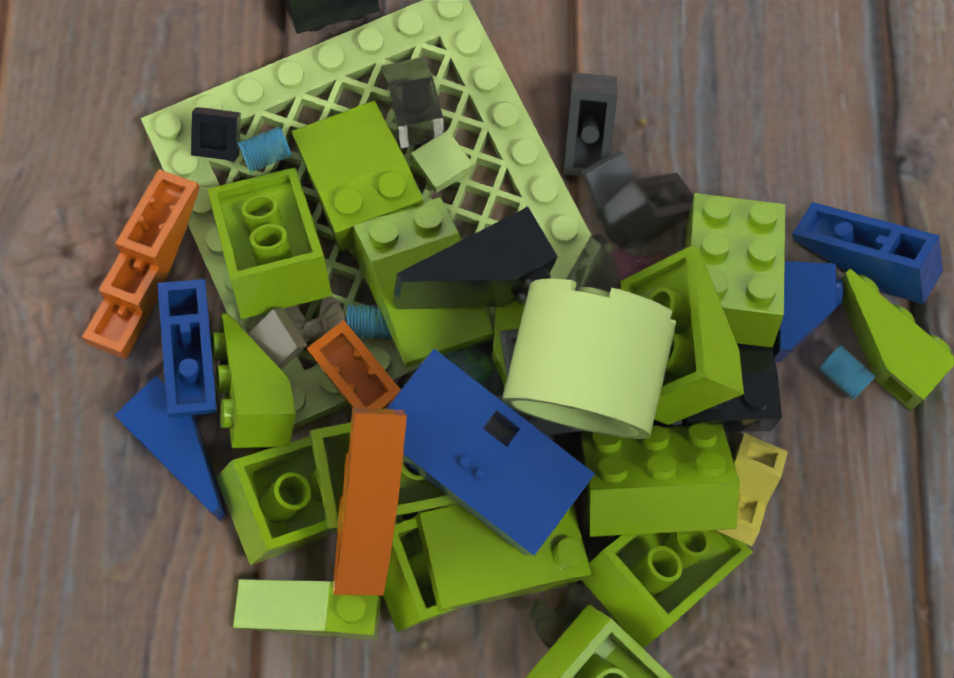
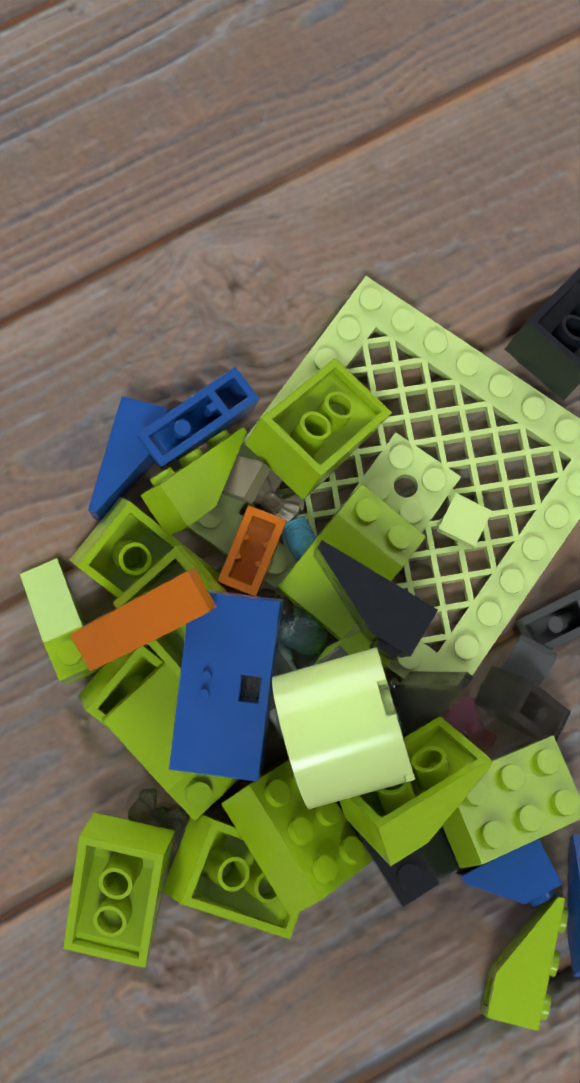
camera: 60 degrees right, 5 degrees up
(145, 259) = (252, 347): orange slope -> none
(215, 133) = (381, 337): black tile -> none
(254, 144) = (398, 387): medium azure piece -> none
(355, 169) = (414, 458): lime slope -> none
(413, 101) = (500, 469): clear smoke slope -> none
(759, 471) = (345, 909): light yellow slope -> none
(846, 373) = (490, 939): medium azure piece -> none

